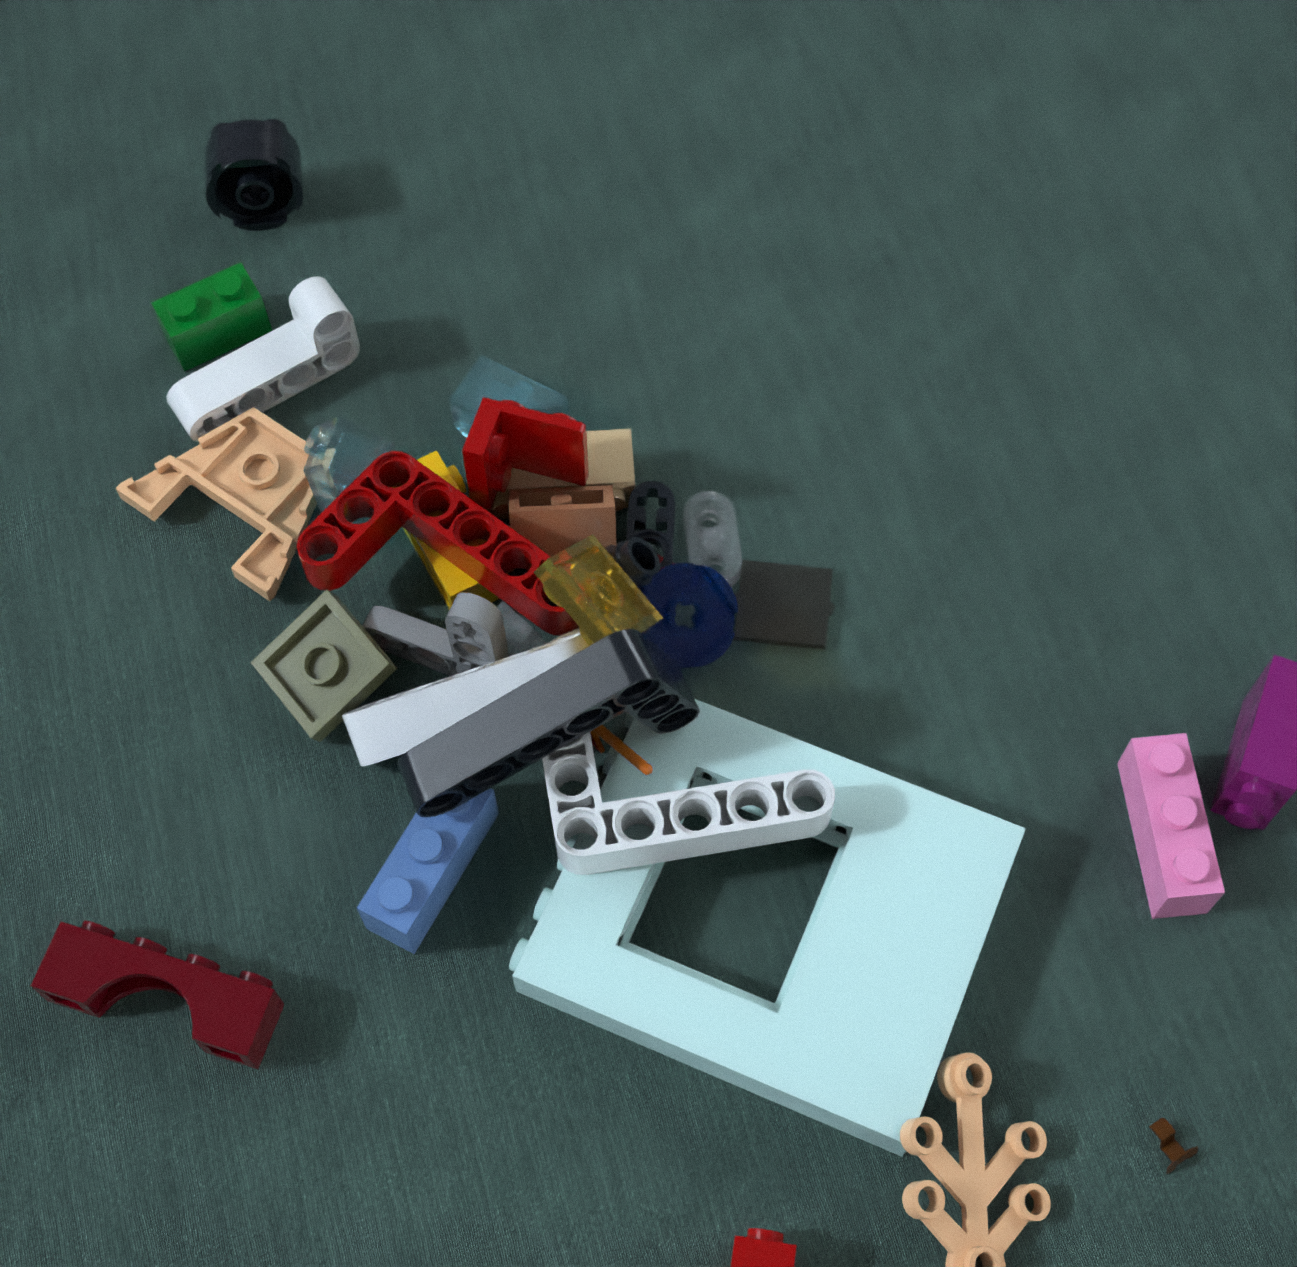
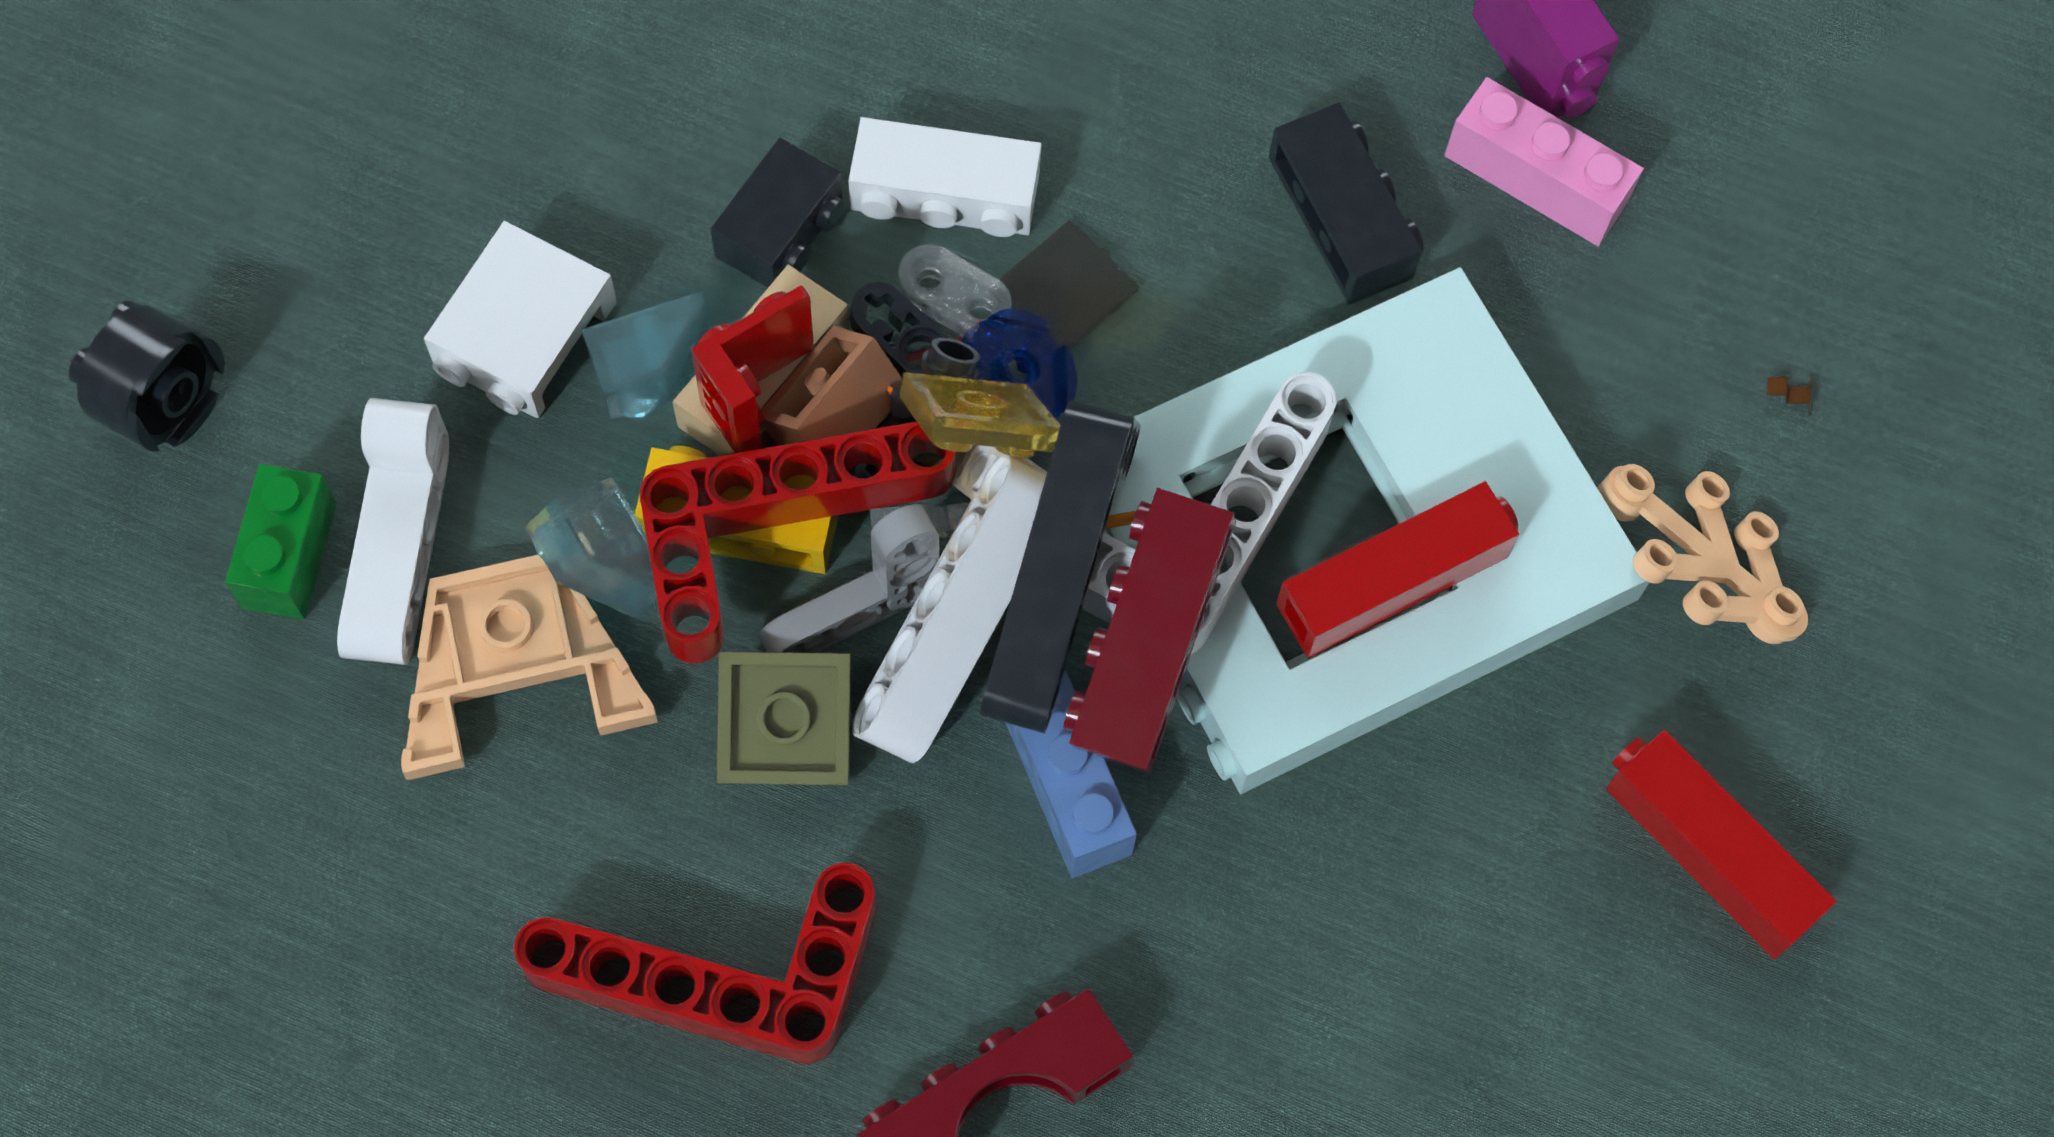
camera: 55 degrees left, 5 degrees up
(108, 766) = (715, 983): none -> red beam
(462, 317) = (517, 319): none -> white panel
(535, 819) = (1151, 629): none -> dark red brick
(669, 402) = (778, 214): none -> black brick
(746, 955) = (1398, 568): none -> red brick
(786, 473) = (944, 177): none -> white brick
(1010, 723) = (1346, 202): none -> black brick

